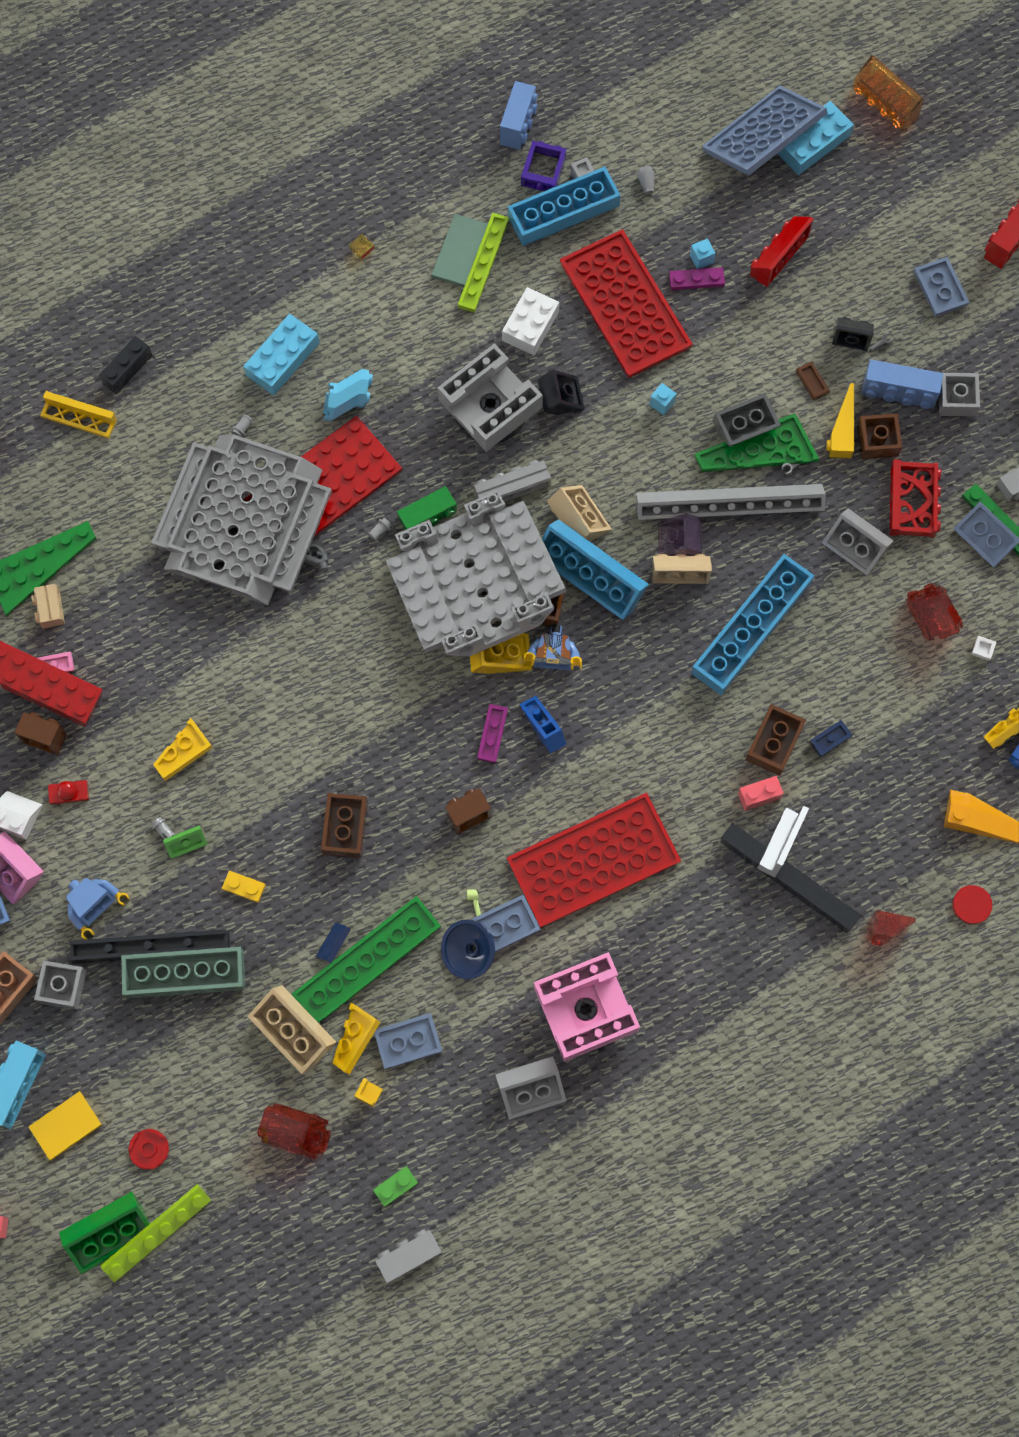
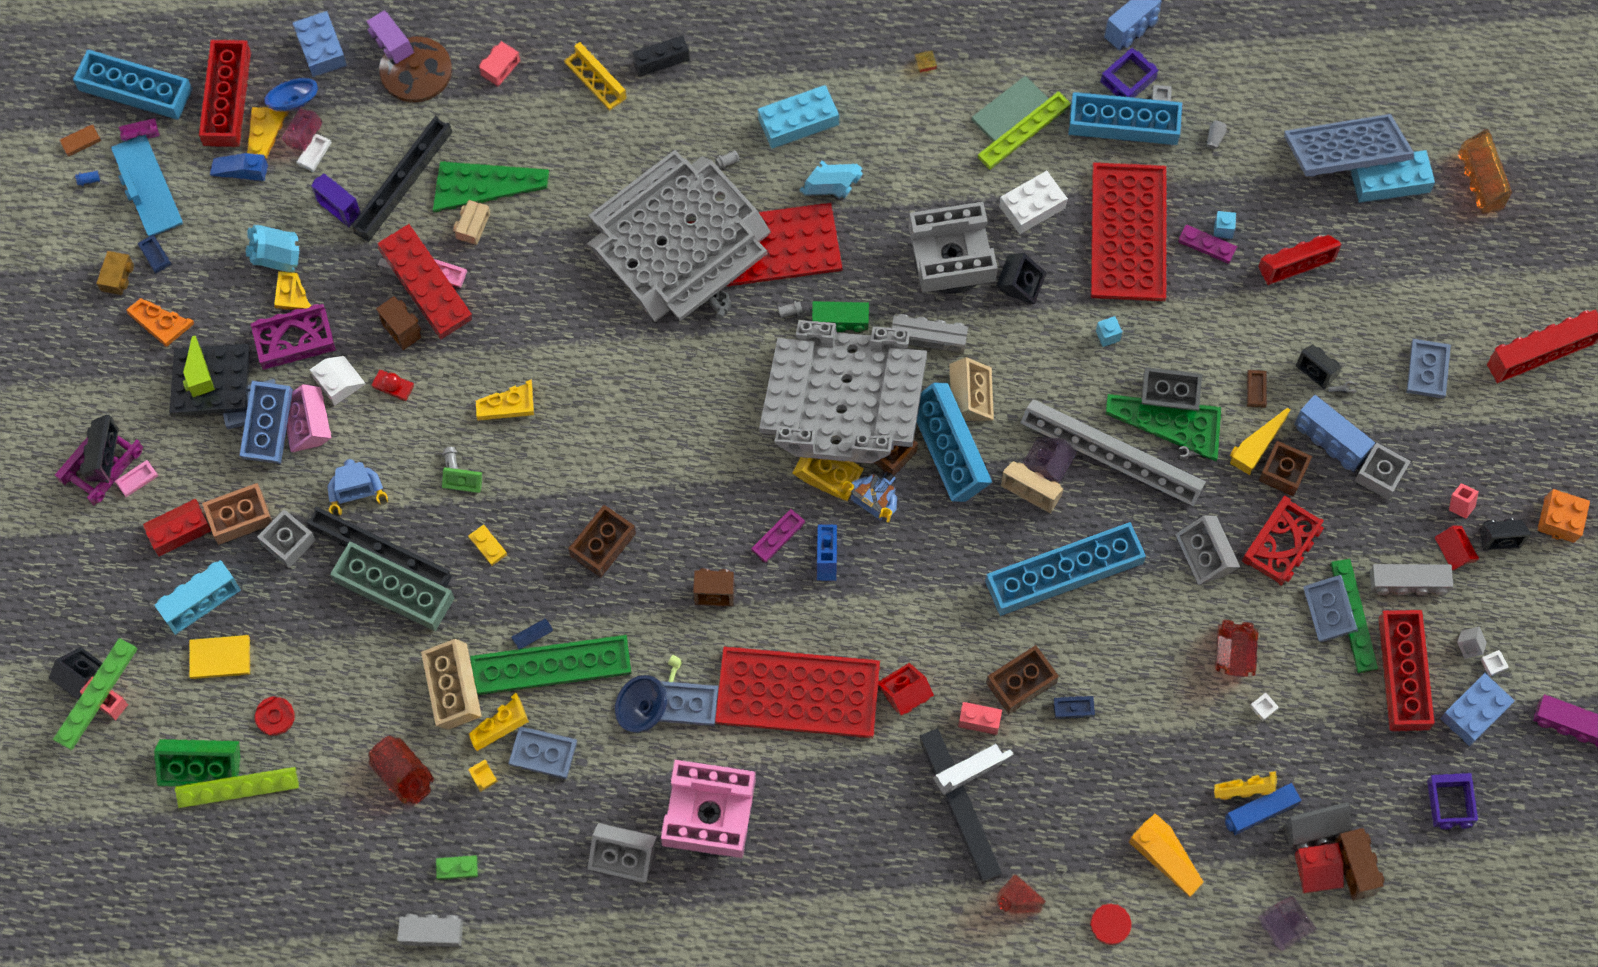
camera: 30 degrees right, 5 degrees down
(682, 803) = (905, 689): none -> red slope

